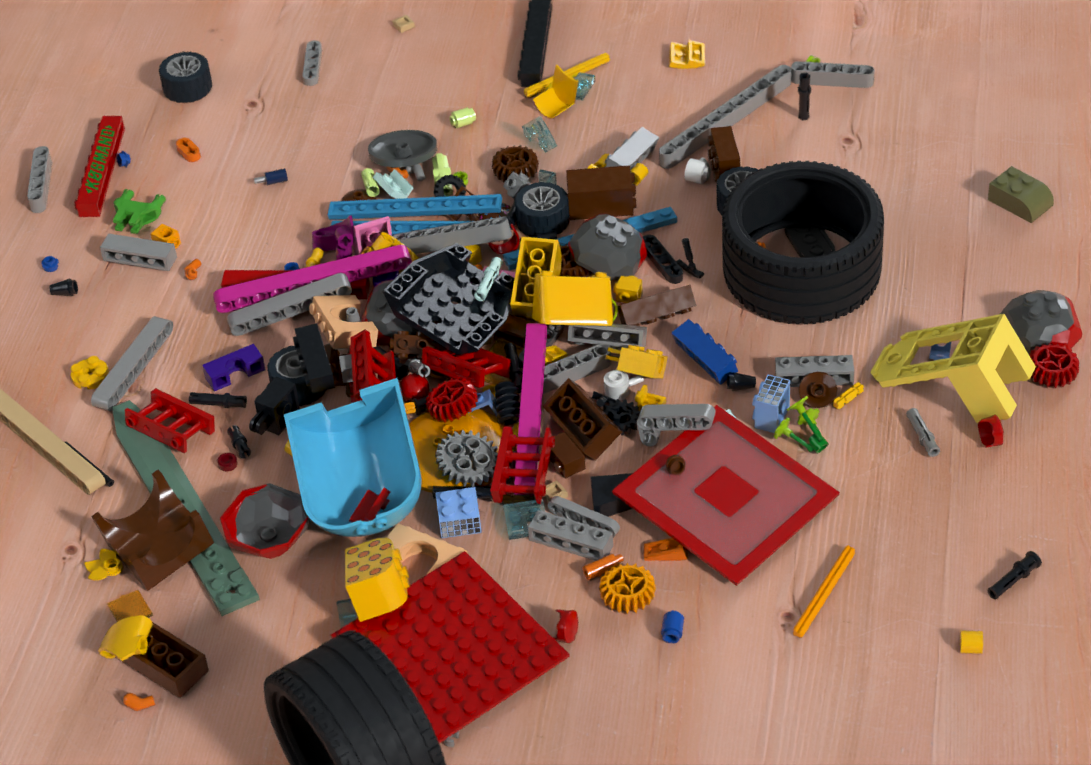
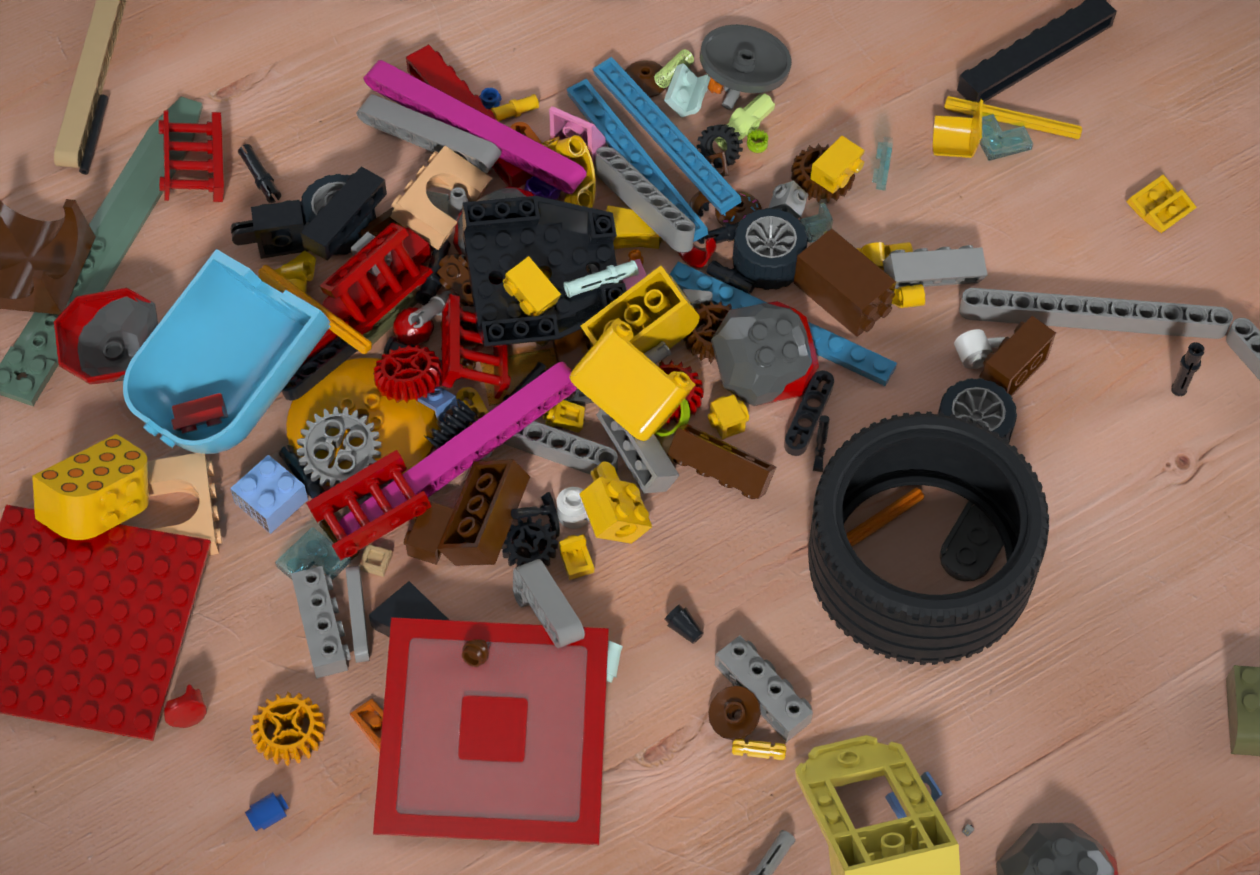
camera: 45 degrees right, 15 degrees up
(93, 365) = (206, 35): yellow plate -> none
(132, 363) = (248, 67): light grey beam -> none
(190, 270) = (415, 17): orange arm -> none
(227, 462) = (187, 243): dark red tile -> none
(239, 441) = (217, 233): black pin -> none
(245, 359) = (294, 145): dark purple arch -> none
(335, 237) = (551, 93): magenta panel -> none
(462, 117) = (849, 74): yellowish green brick -> none
(464, 306) = (531, 288): none -> yellow brick
(524, 148) = (837, 164): none -> yellow brick
(600, 566) = (303, 681): orange cylinder -> none
(705, 351) = (694, 557): blue brick -> none
(771, 403) = (664, 681): light blue brick -> none
(817, 441) = (654, 766): plant -> none

